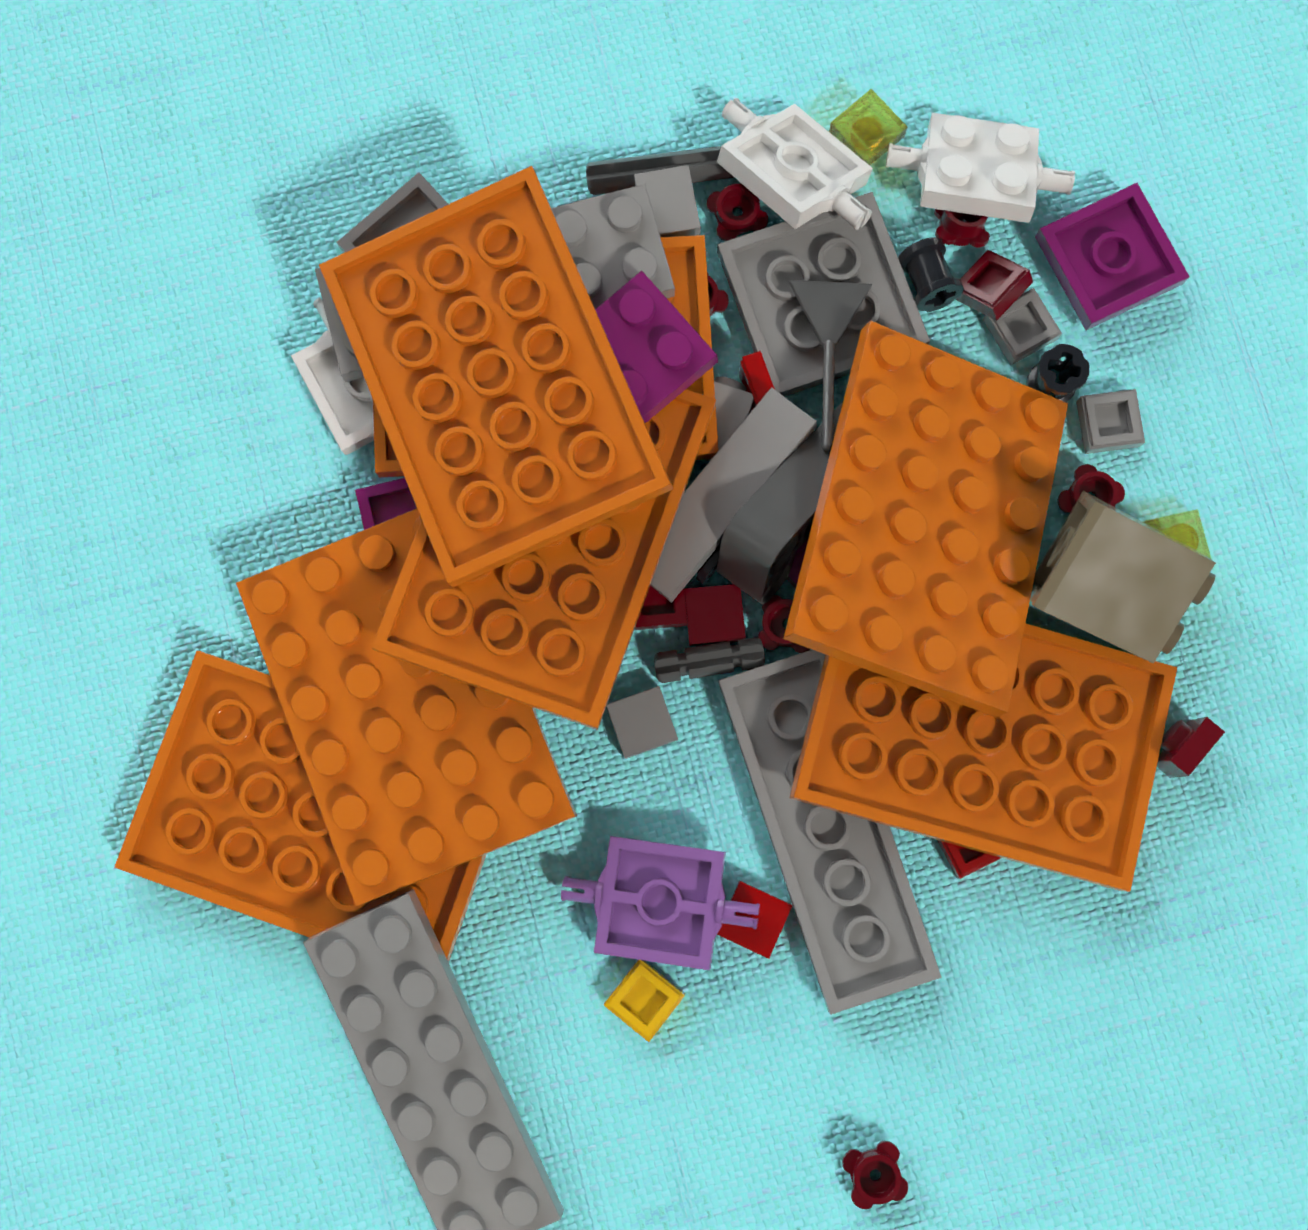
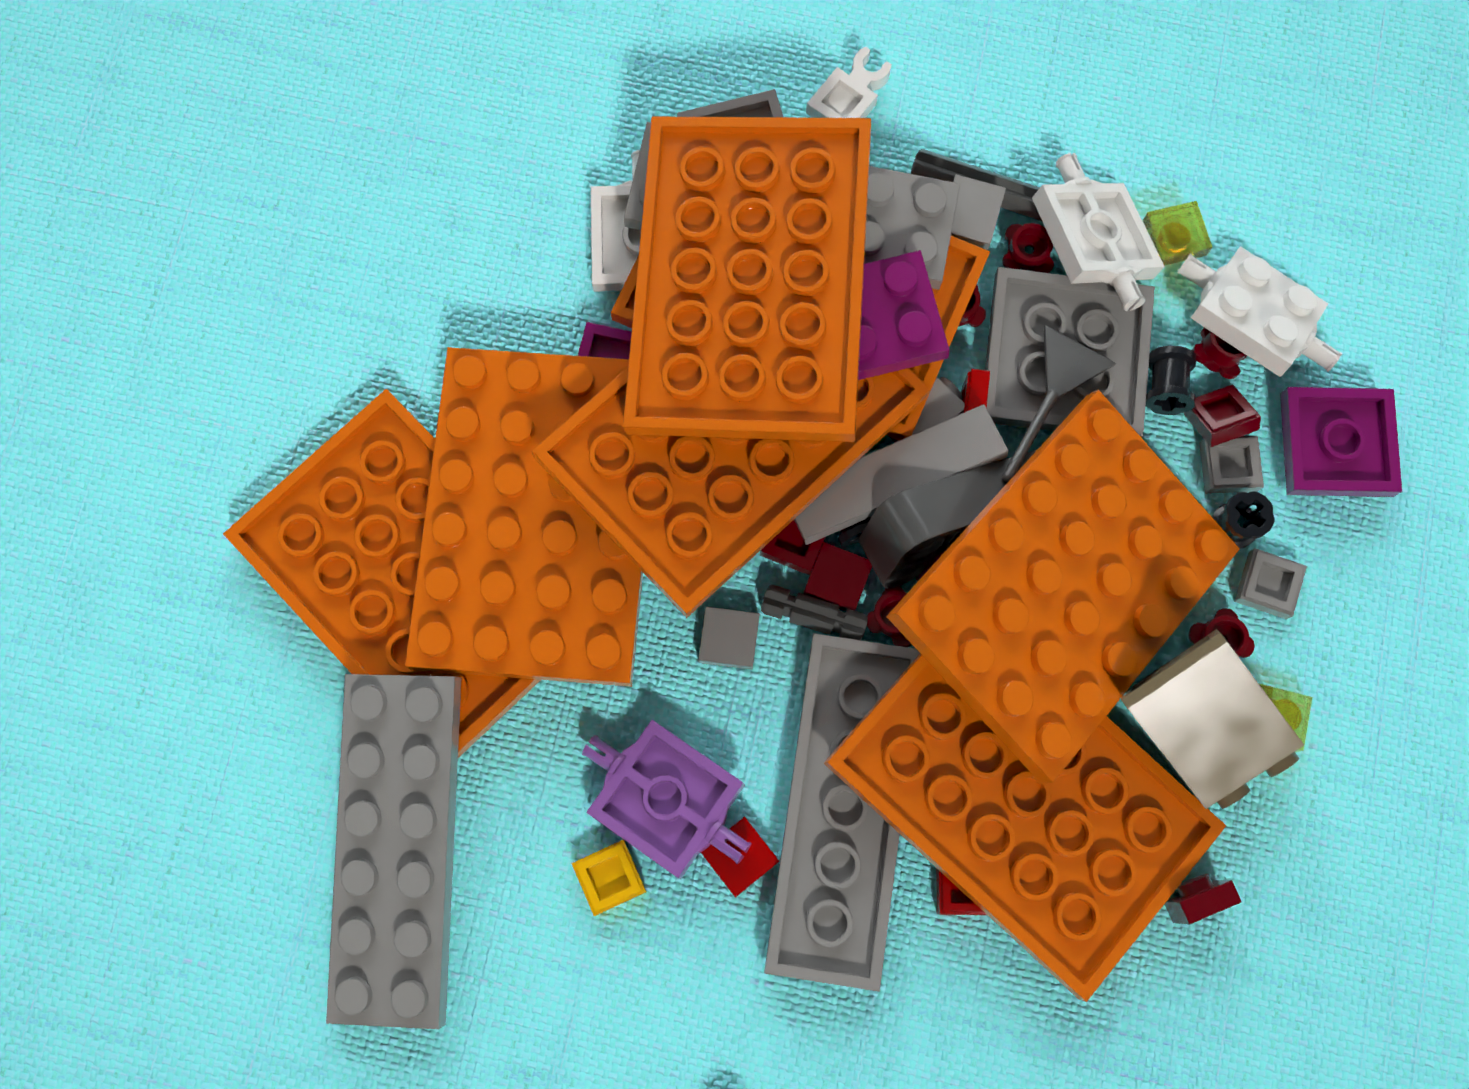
camera: 20 degrees right, 5 degrees down
(491, 147) = (849, 94): none -> white plate

